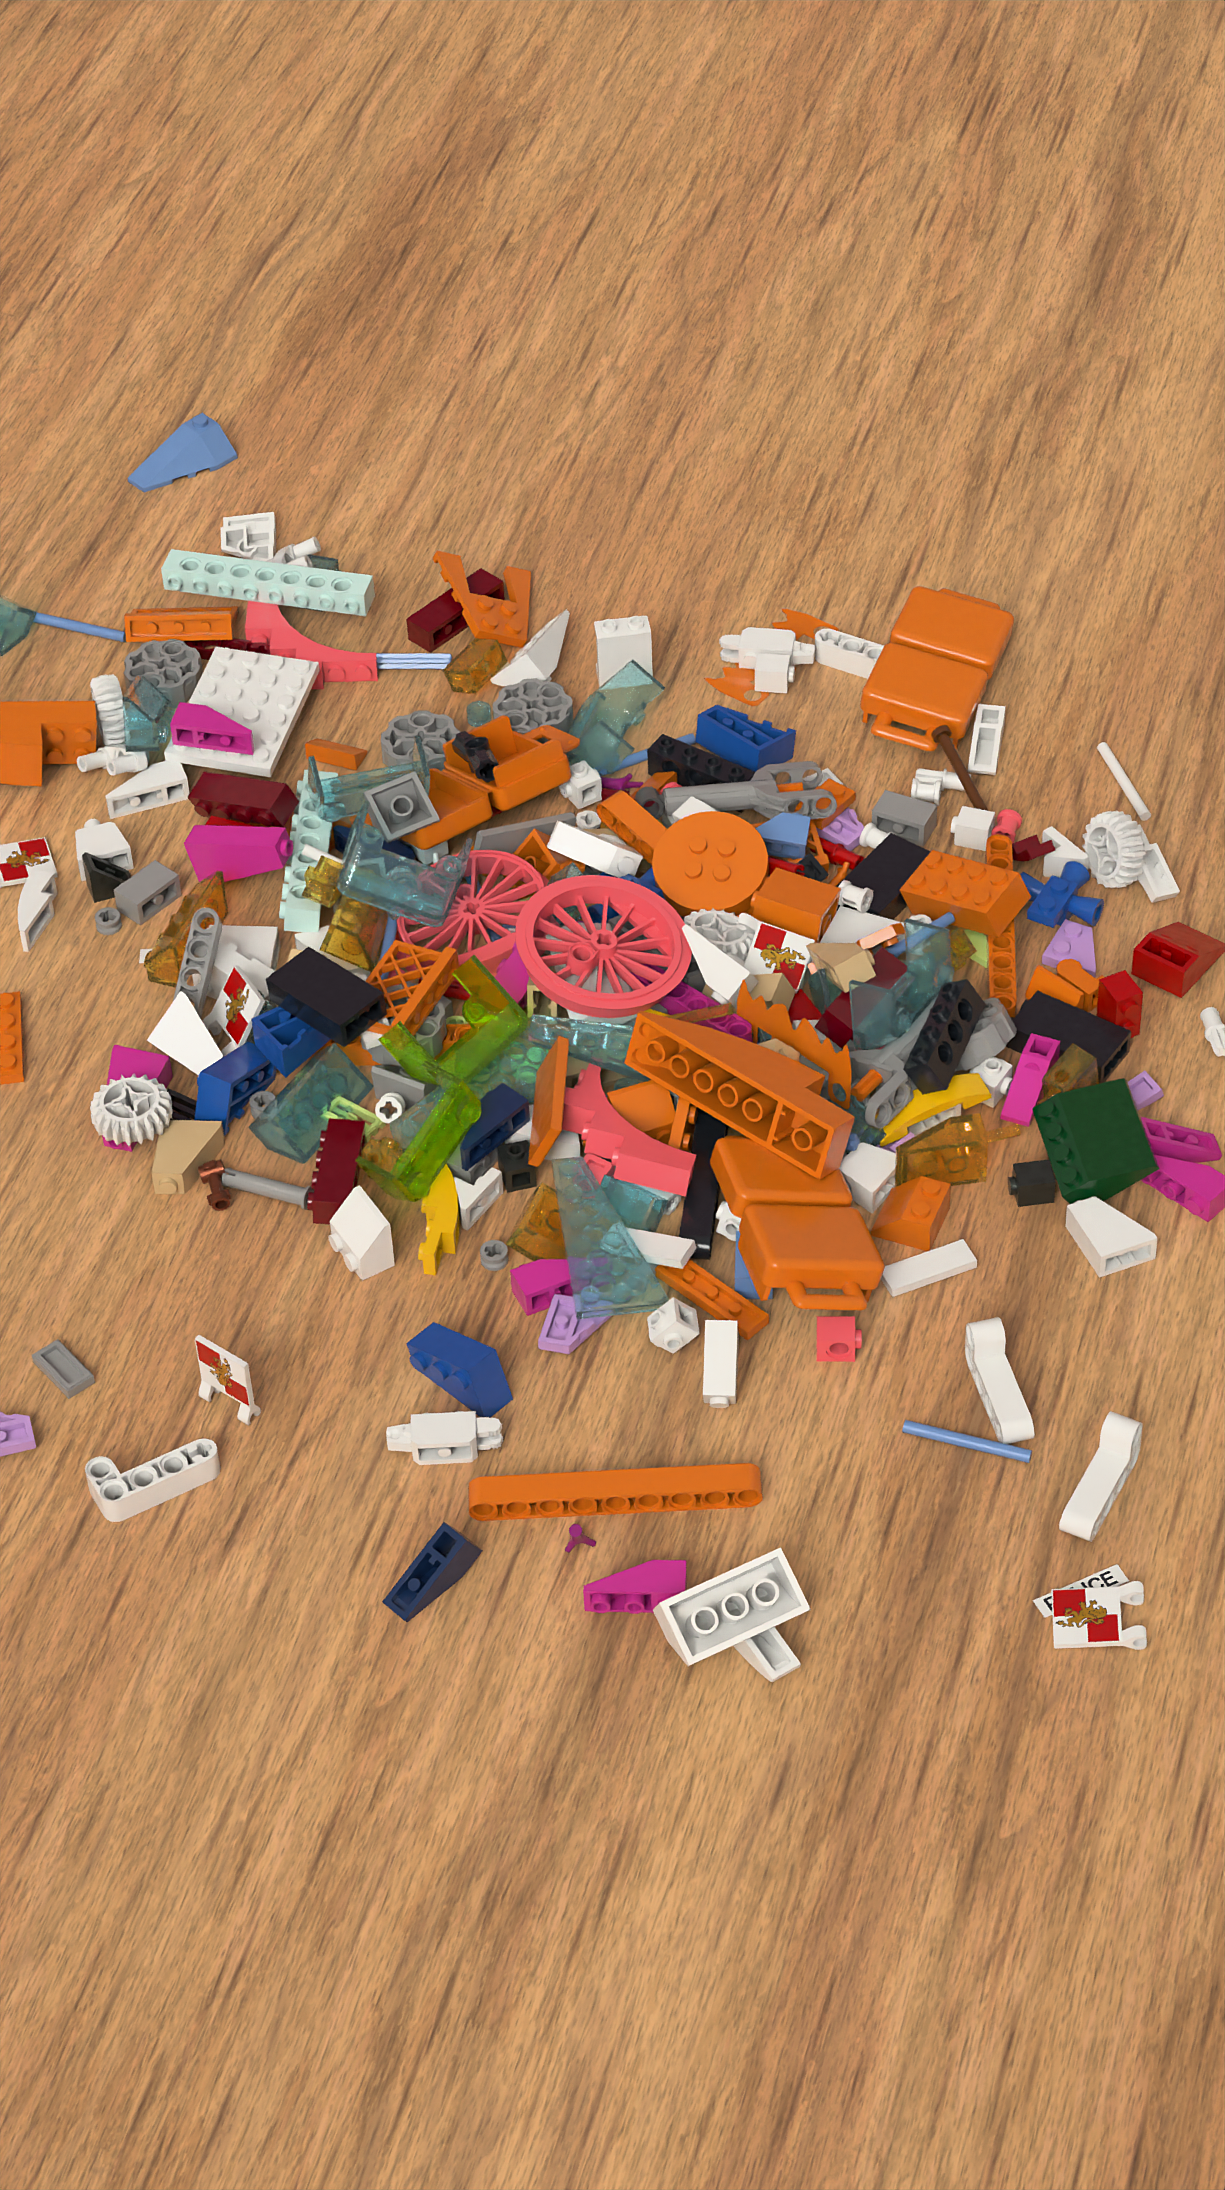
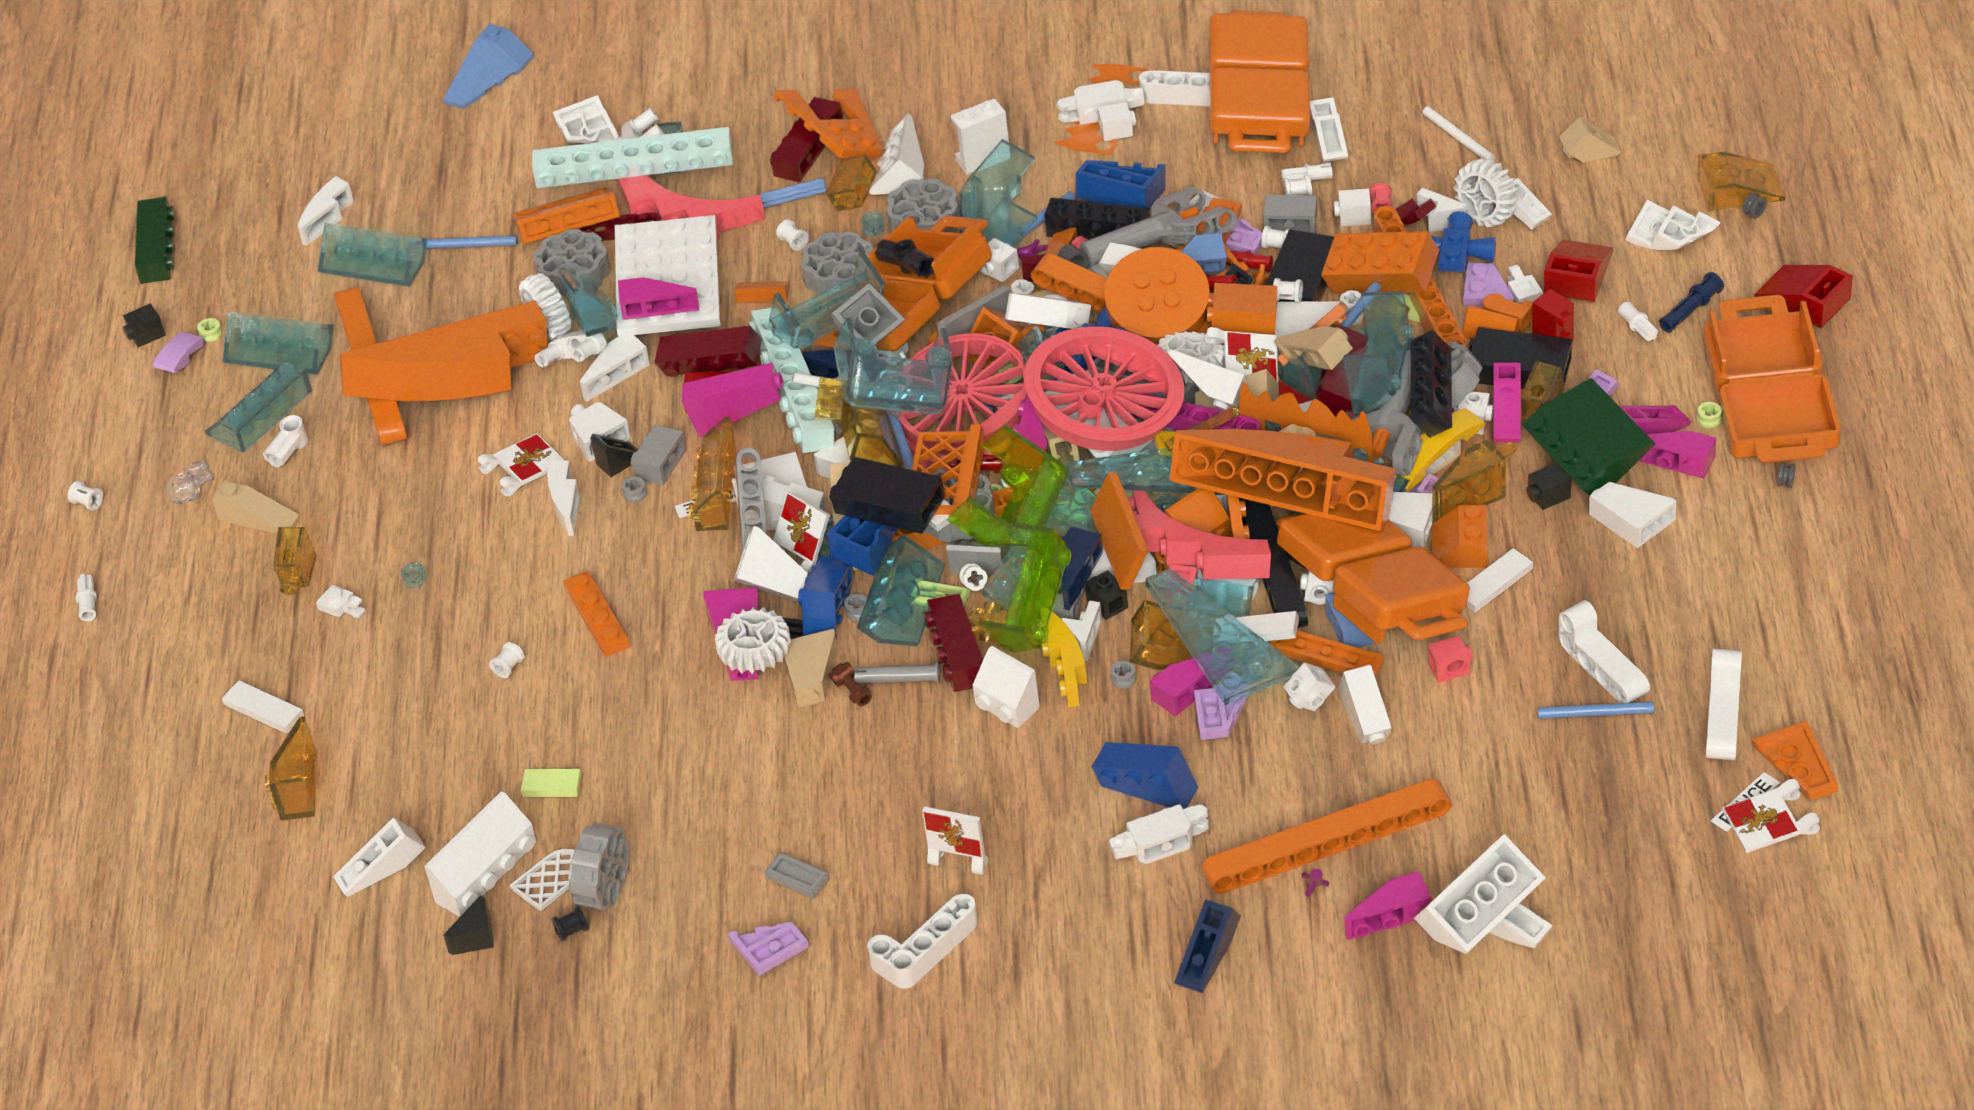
camera: 15 degrees left, 0 degrees up
(390, 700) = (791, 234): none -> white bush
(942, 736) = (1293, 135): reddish brown bar -> none
(1109, 959) = (1522, 286): none -> white plate
(1159, 1561) = (1798, 757): none -> orange wing

